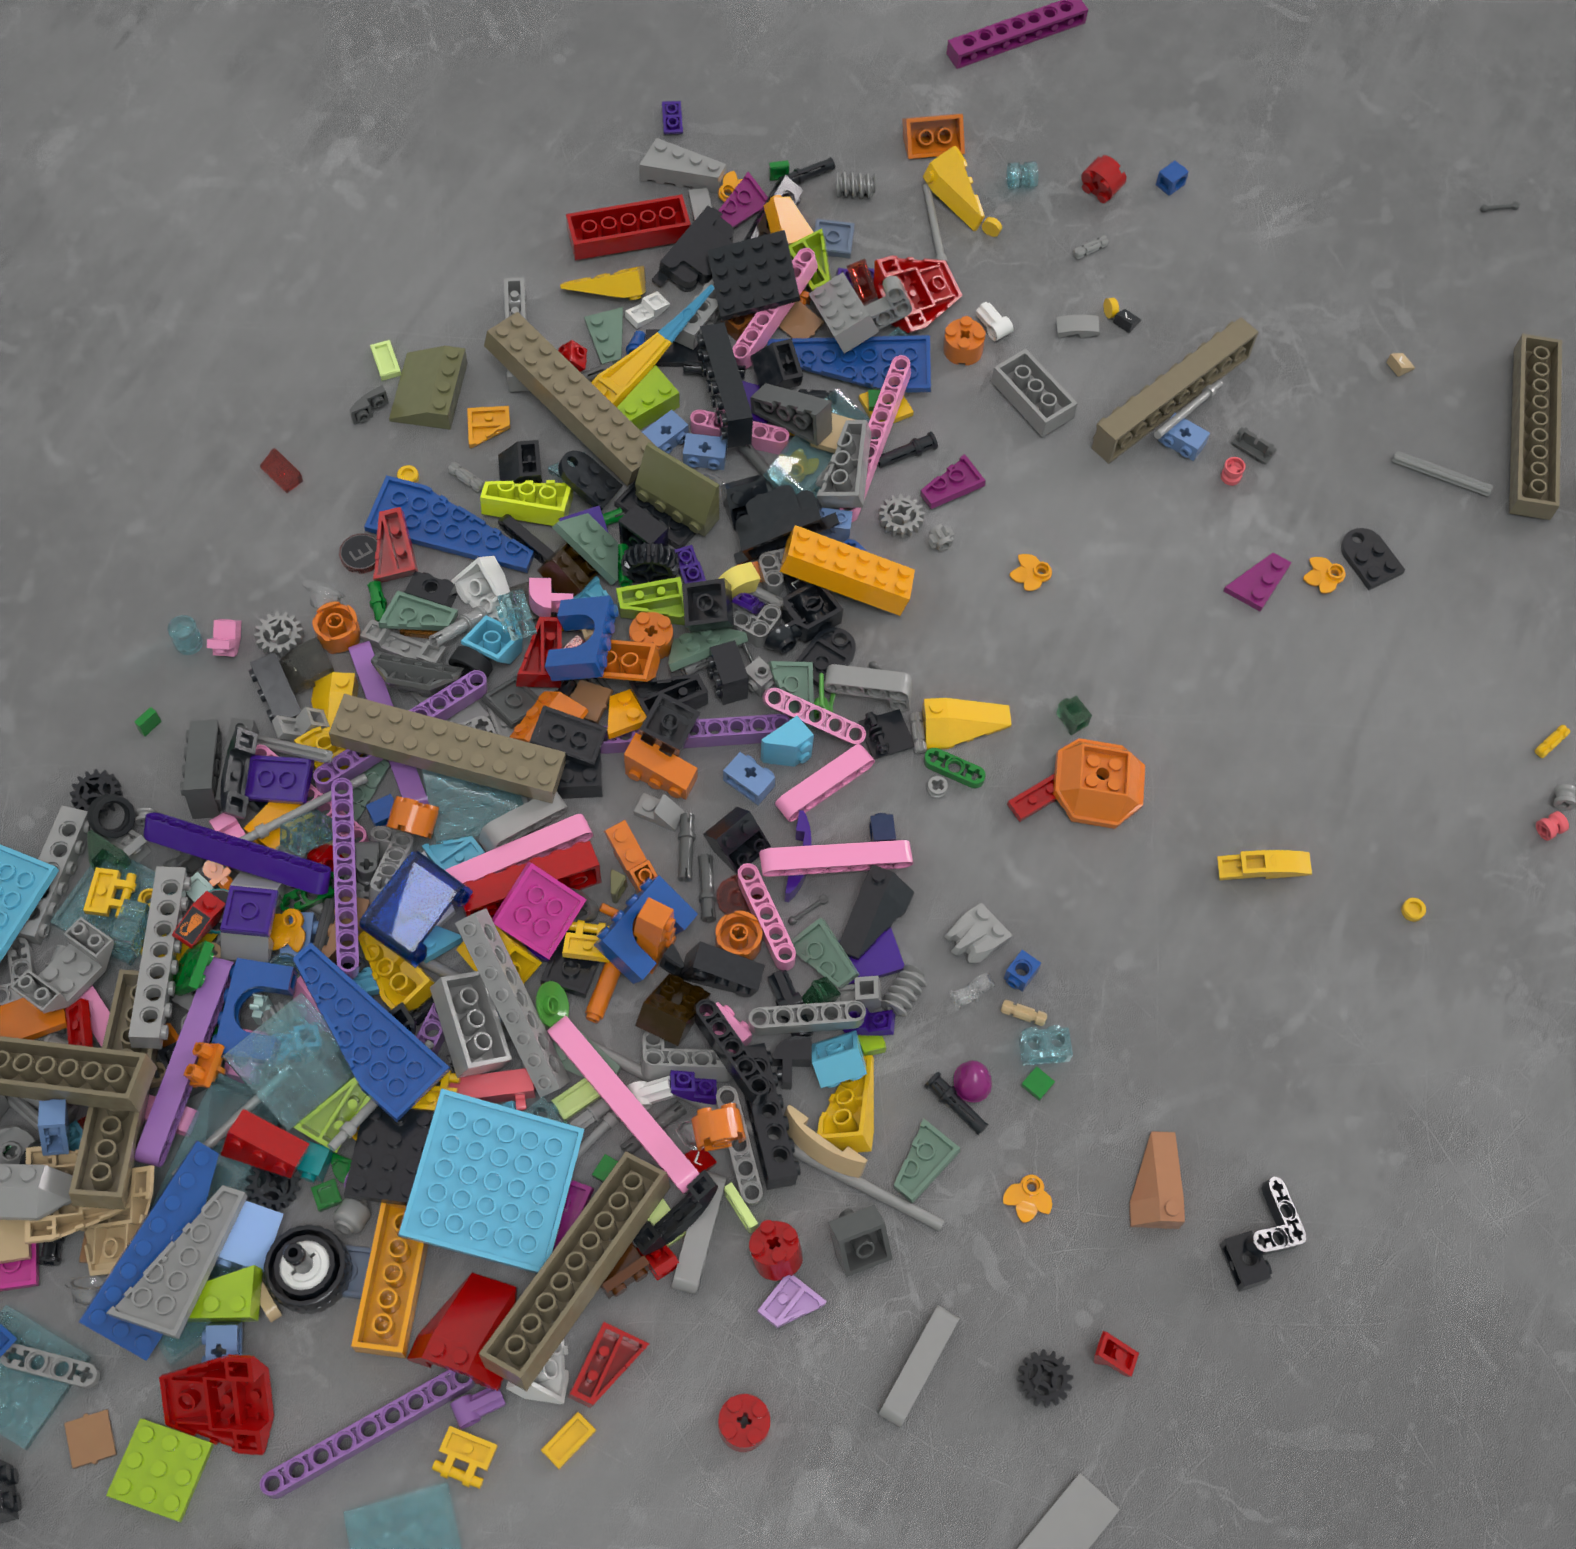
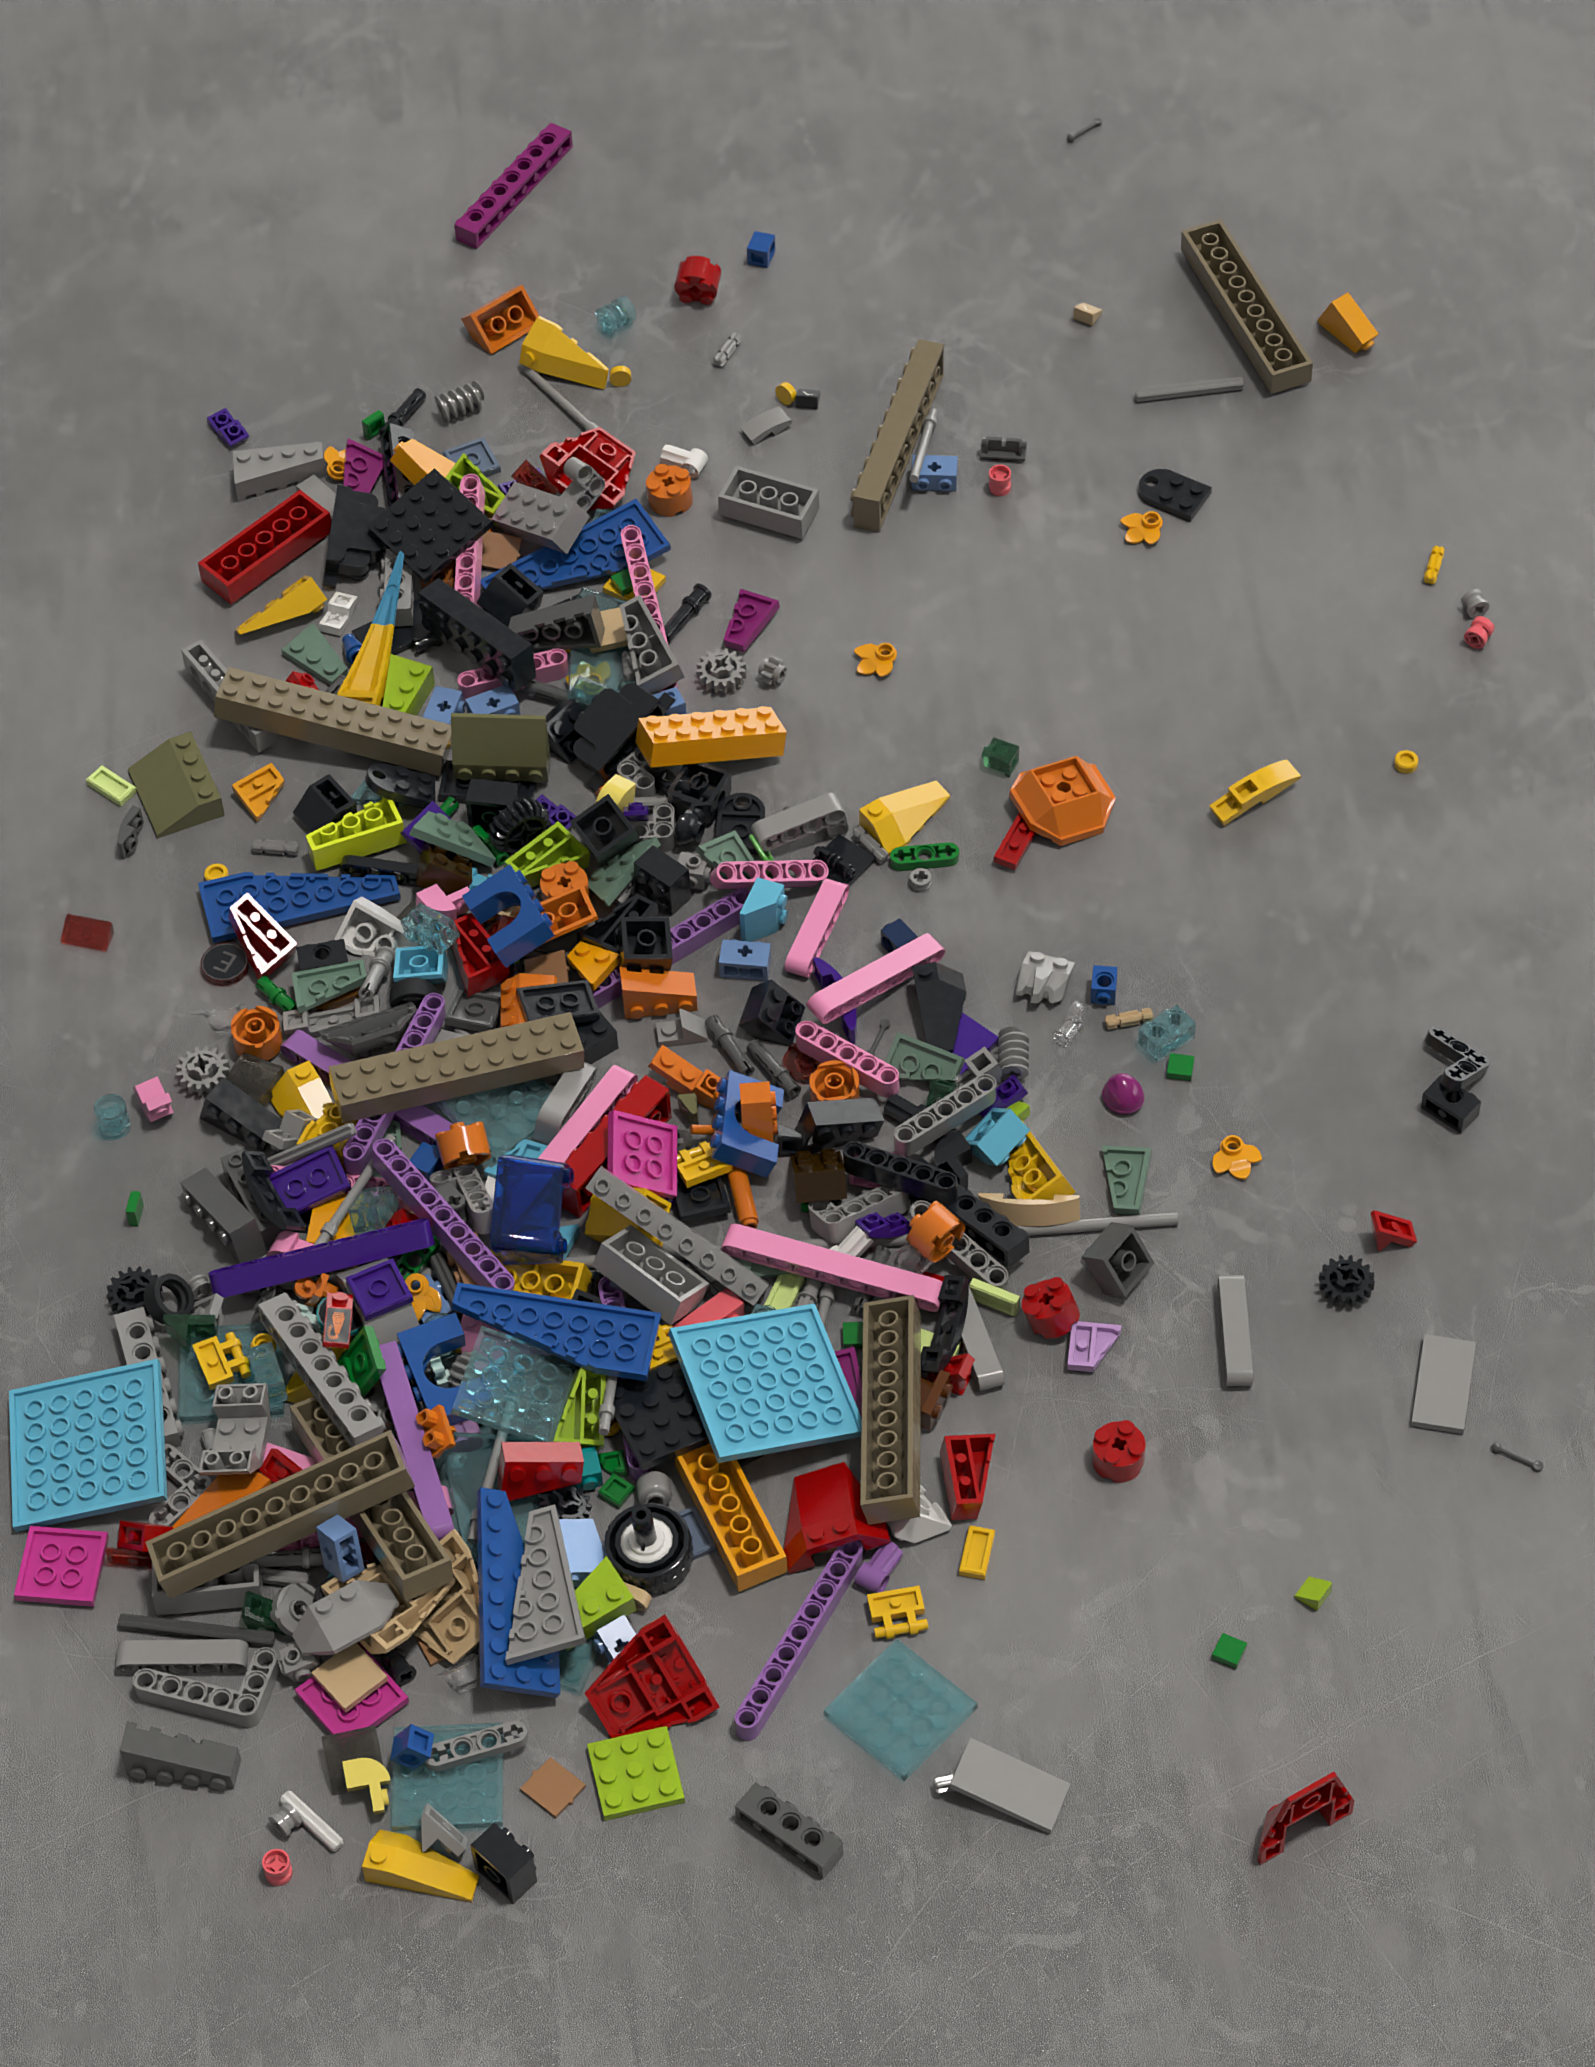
camera: 25 degrees left, 10 degrees down
(551, 1003) = (707, 1227): bright green dish -> none
(945, 1096) = (1110, 1116): black pin -> none
(1158, 1187) = (1341, 1090): nougat wedge -> none
(1259, 582) = (1088, 563): magenta wing -> none

